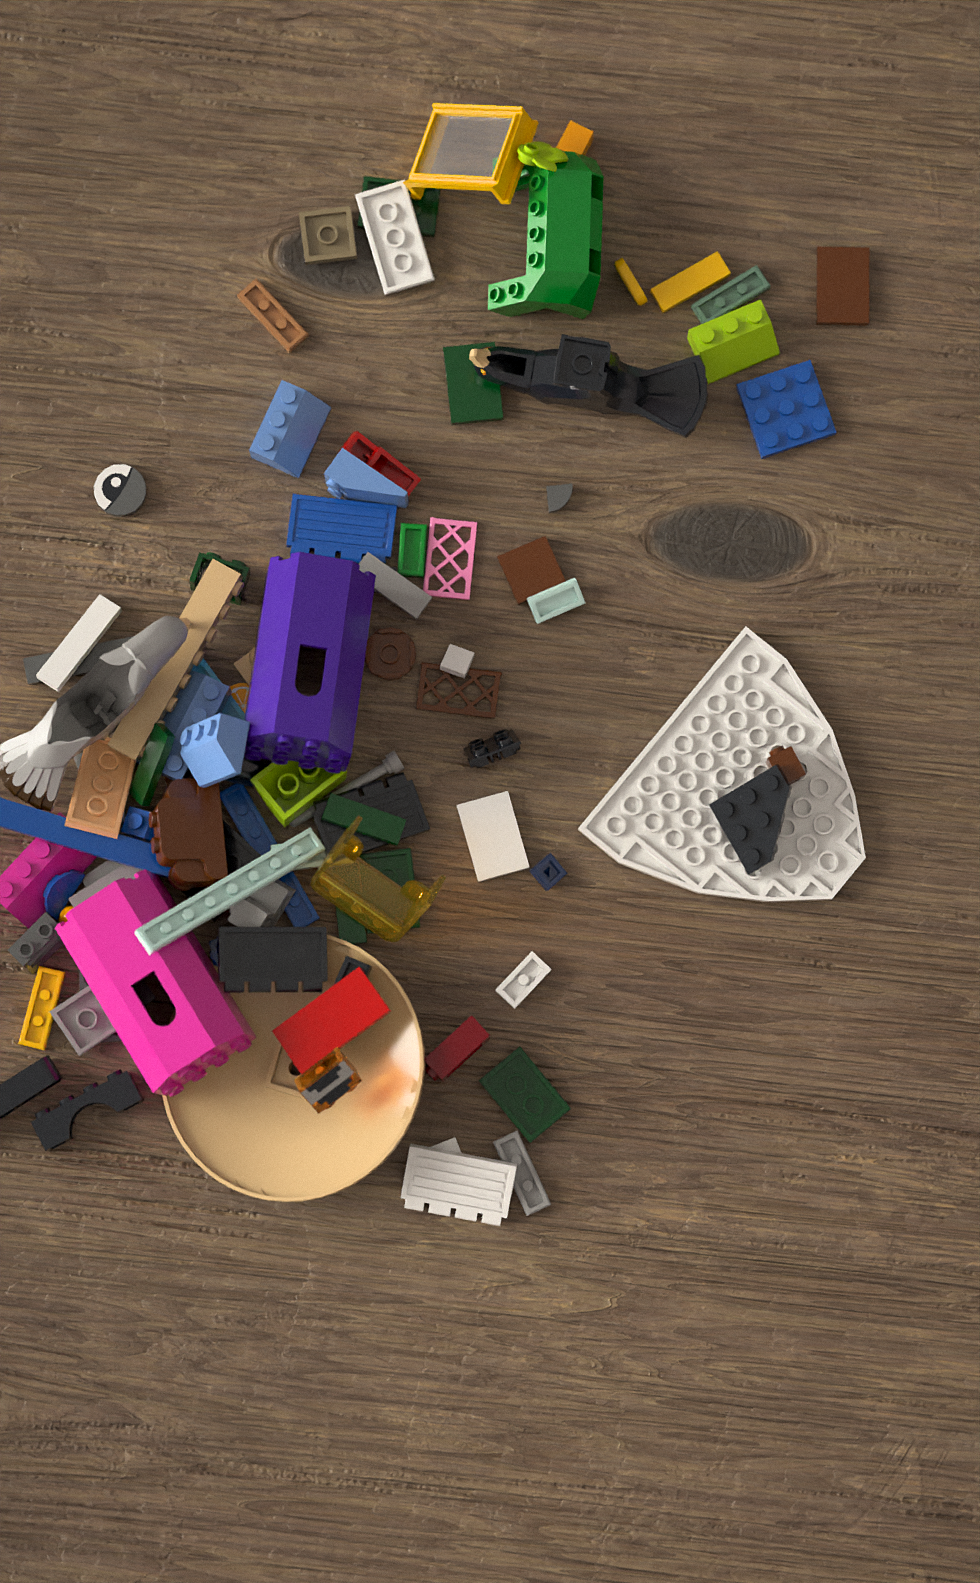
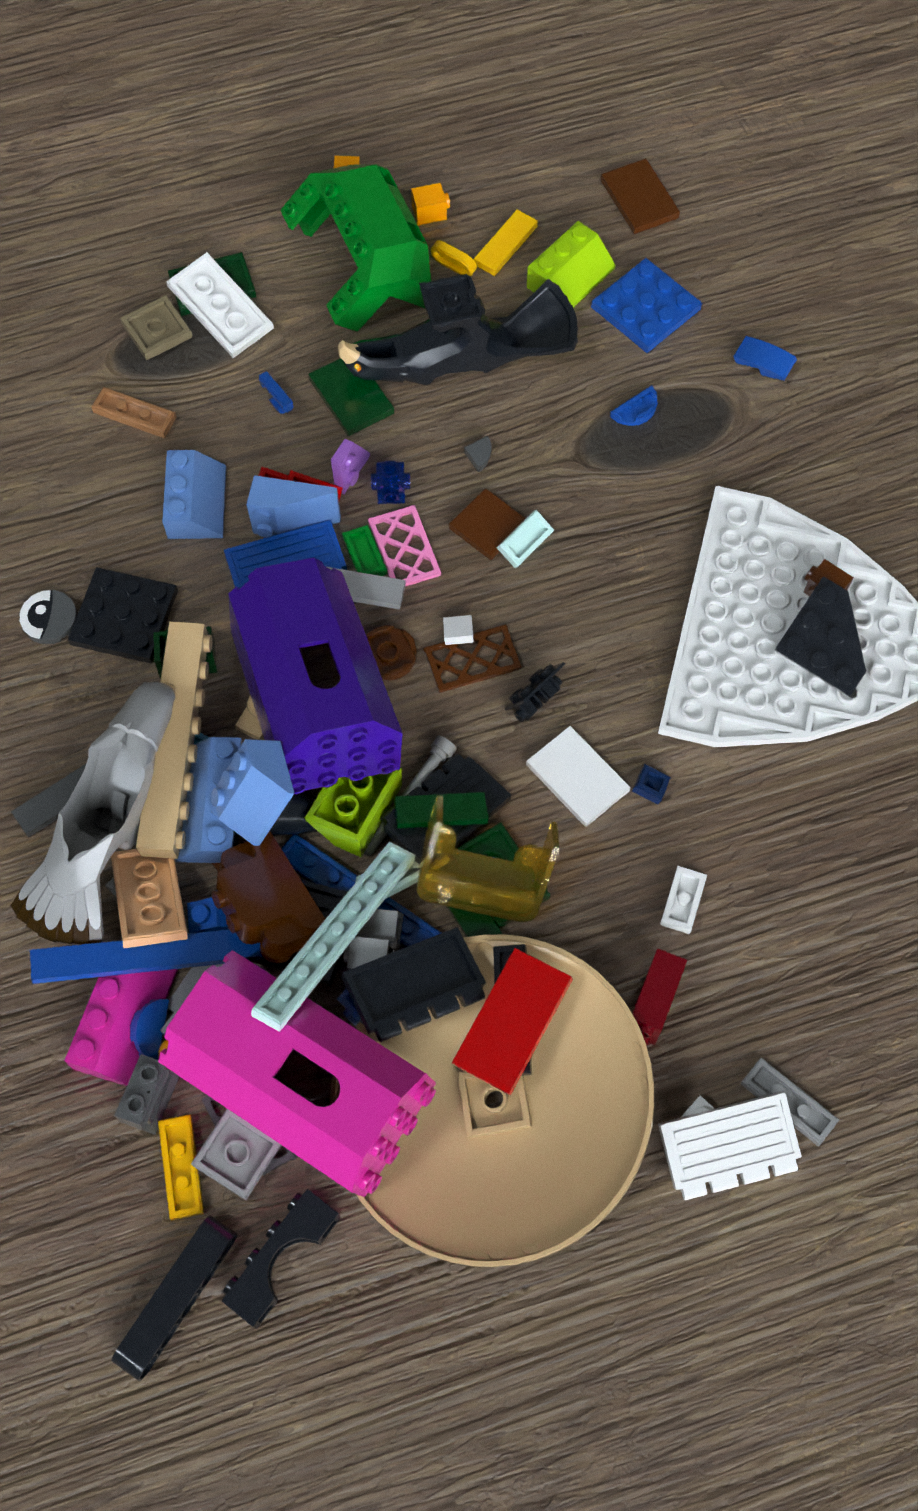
camera: 25 degrees left, 15 degrees down
(79, 643) = (64, 769): white tile -> none
(152, 764) = (193, 846): dark green tile -> none
(183, 516) = (122, 614): none -> black plate
(328, 1080) = (542, 1085): brick -> none
(403, 357) = (280, 399): none -> blue tile
(430, 464) = (347, 464): none -> medium lavender wing
(464, 503) = (390, 482): none -> clear blue brick
(472, 150) = (256, 194): piece -> none
(524, 1094) = (747, 1017): dark green tile -> none
(541, 155) = (314, 168): lime plate -> none
(638, 210) = (429, 203): none -> light orange brick
(721, 515) = (637, 409): none -> blue tile
(731, 295) = (549, 232): sand green tile -> none
(861, 517) = (768, 358): none -> blue slope

